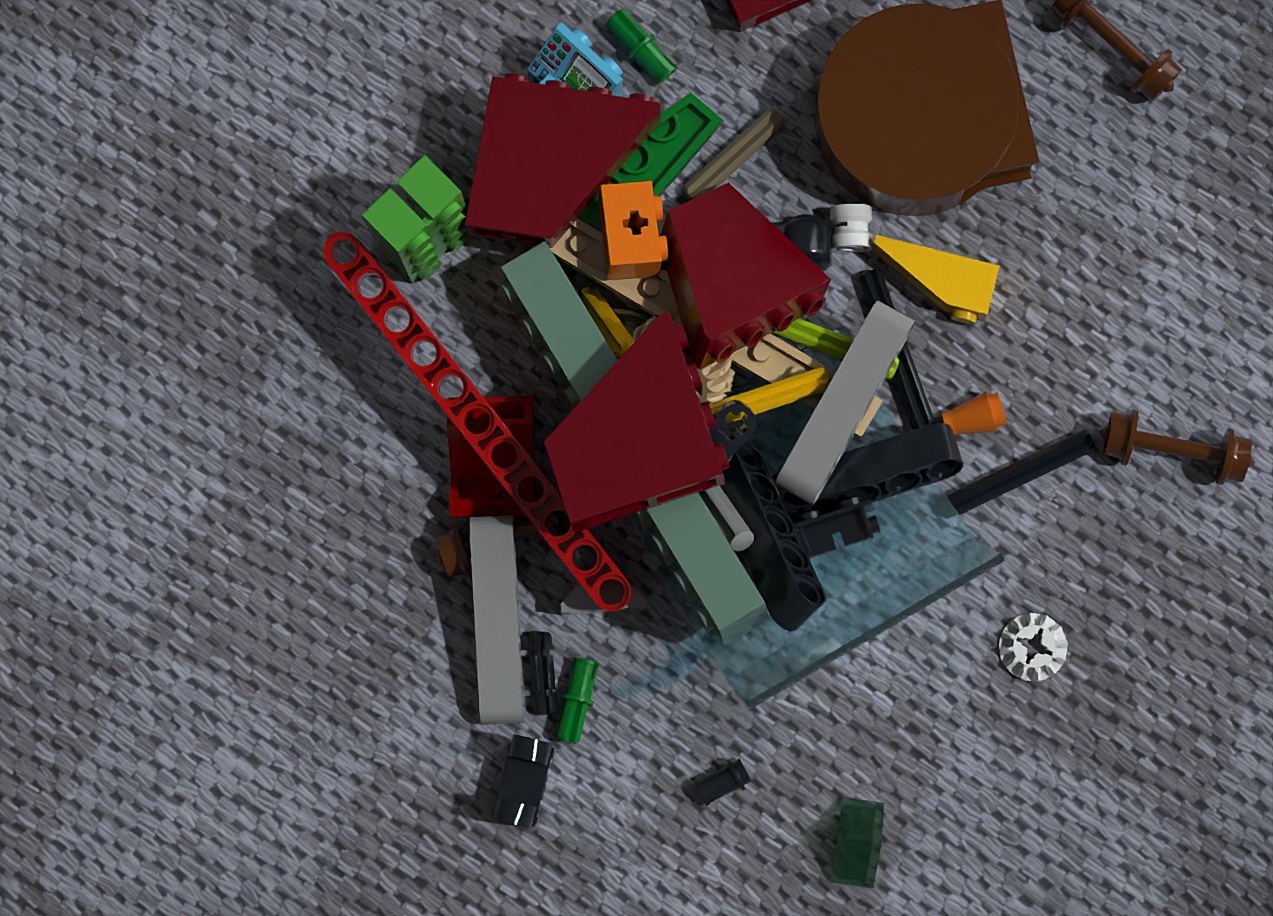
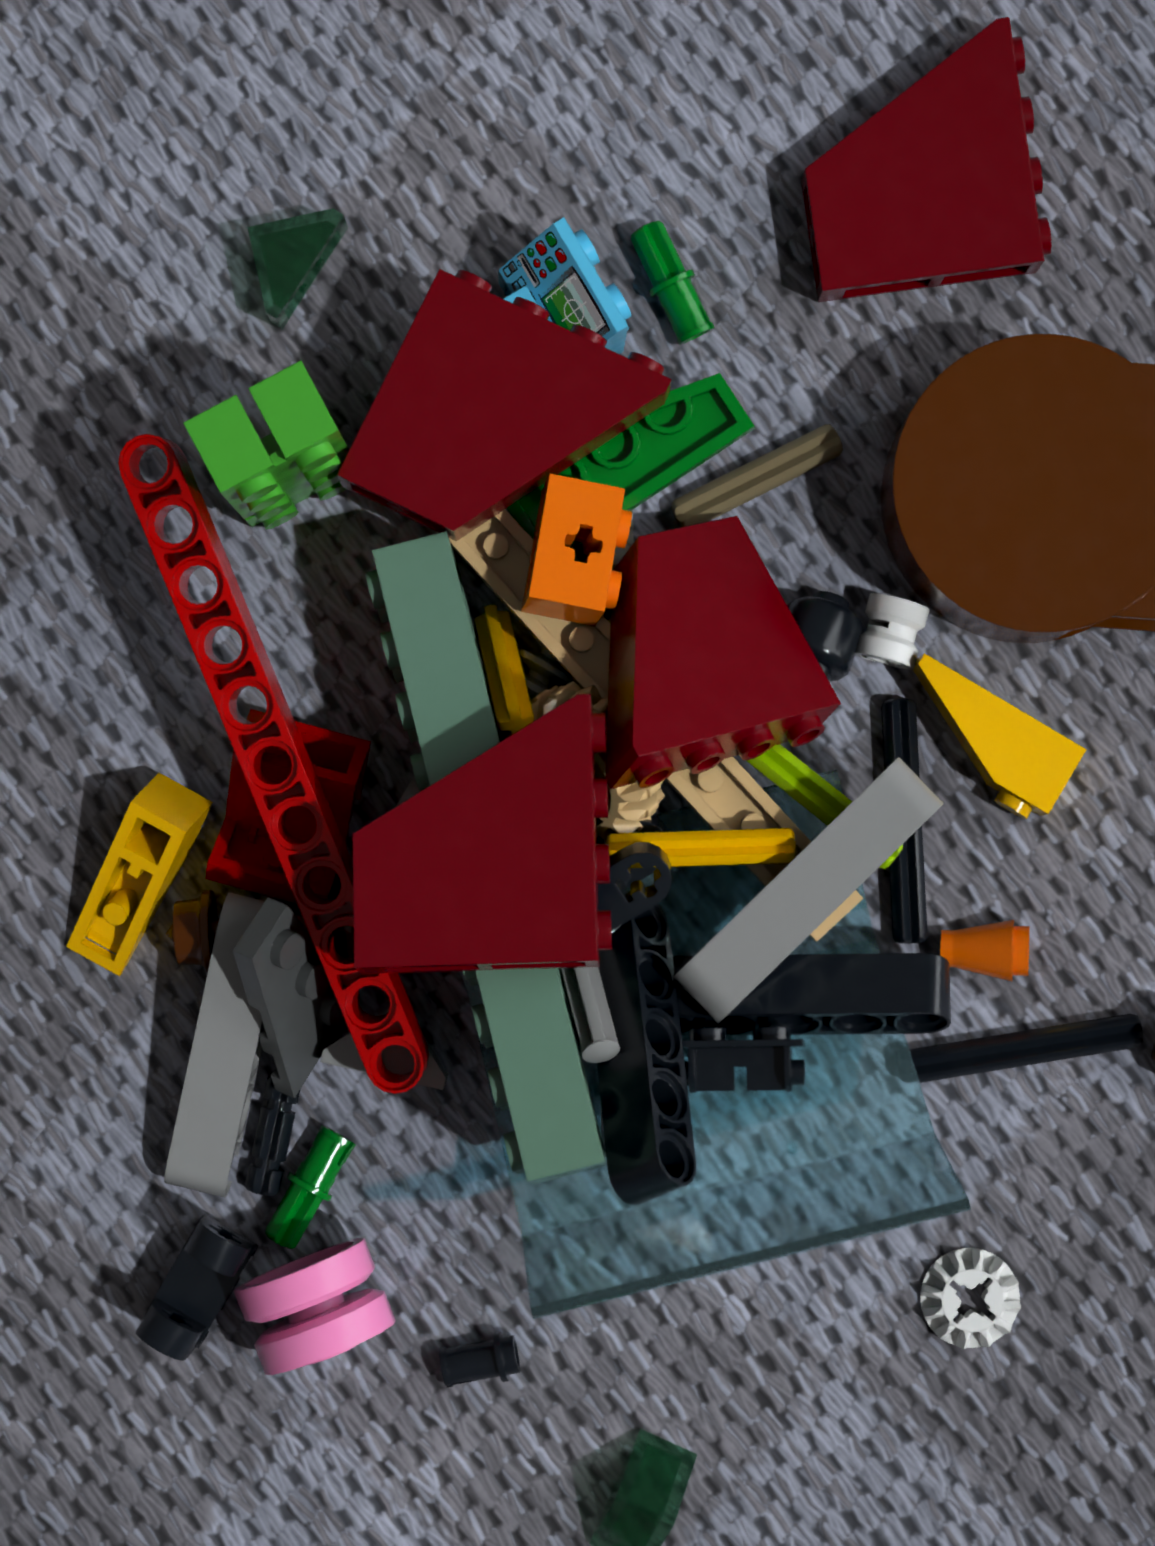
camera: 15 degrees right, 5 degrees up
(389, 99) = (291, 256): none -> clear green slope
(404, 527) = (138, 871): none -> yellow slope
(532, 567) = (290, 991): none -> dark grey wing
(608, 776) = (318, 1315): none -> bright pink wheel

